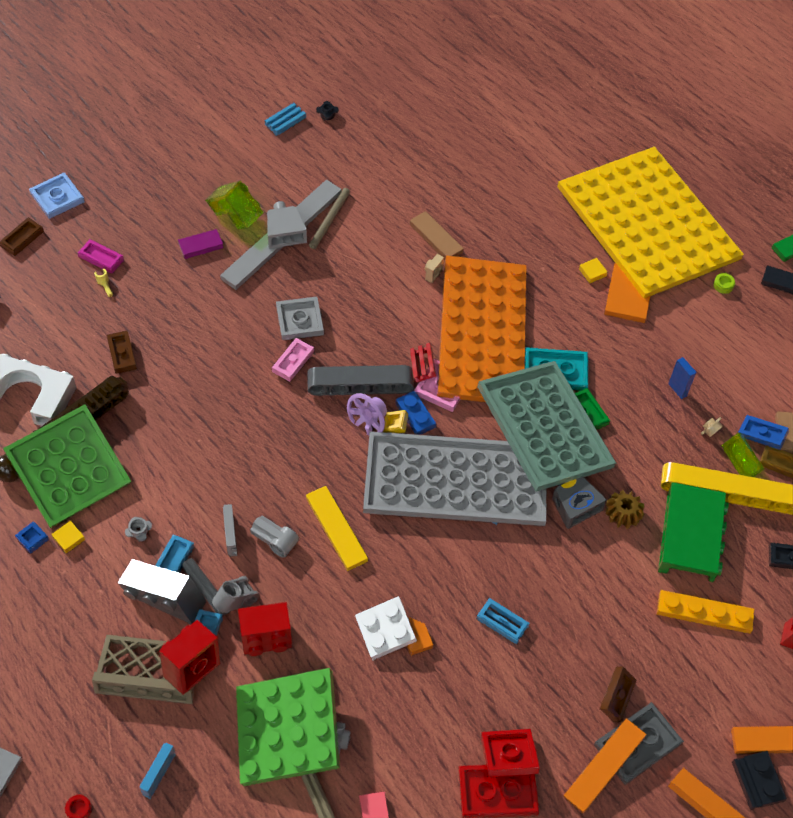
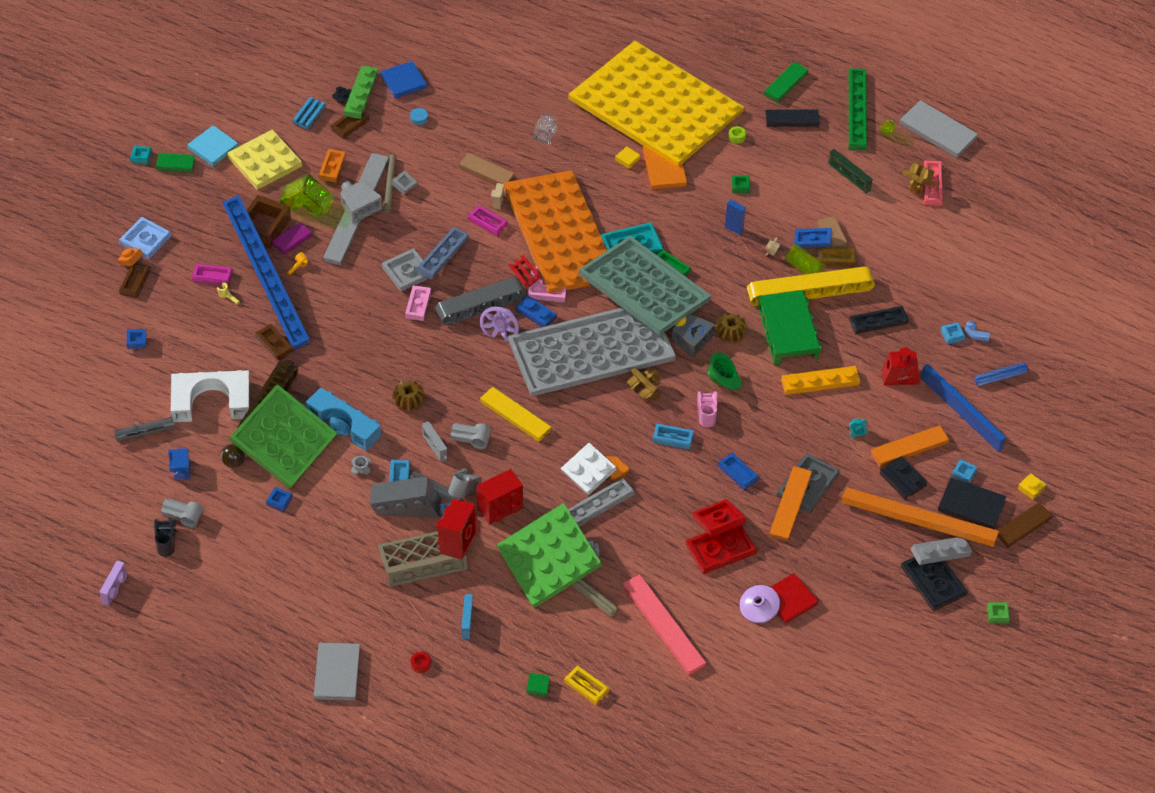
camera: 20 degrees left, 5 degrees down
(28, 209) = (130, 256): none -> orange plate
(68, 537) = (308, 489): yellow tile -> none
(100, 109) = (141, 154): none -> teal tile
(128, 127) = (175, 162): none -> green tile
(135, 446) = (363, 429): none -> dark azure arch
(138, 475) = (340, 426): none -> dark azure tile
(149, 275) = (266, 272): none -> blue plate
(173, 122) = (212, 145): none -> medium azure tile
(197, 272) = (301, 261): none -> light orange hand
(201, 218) = (272, 209): none -> reddish brown window
(217, 152) = (264, 159): none -> light yellow plate
(229, 464) = (408, 395): none -> pearl gold gear
(279, 180) = (332, 165): none -> orange plate
(320, 141) = (348, 125): none -> reddish brown tile
(343, 222) = (404, 182): none -> light grey plate
(344, 312) = (442, 253): none -> sand blue tile
(346, 113) = (361, 92): none -> bright green plate
(378, 676) = (601, 501): none -> light grey tile
(393, 156) = (419, 116): none -> dark azure tile
(396, 114) = (403, 79): none -> blue tile
(396, 422) = (526, 322): yellow tile -> none
(418, 302) = (485, 222): none -> dark pink tile
(491, 536) = (649, 389): none -> pearl gold hips
(518, 210) = (545, 128): none -> clear brick
(556, 597) = (707, 408): none -> bright pink piece
(560, 695) = (738, 471): none -> blue tile
(593, 563) = (723, 372): none -> green piece
(618, 694) = (780, 455): reddish brown plate -> none
(705, 340) = (740, 183): none -> green tile
(727, 692) = (858, 427): none -> teal plate

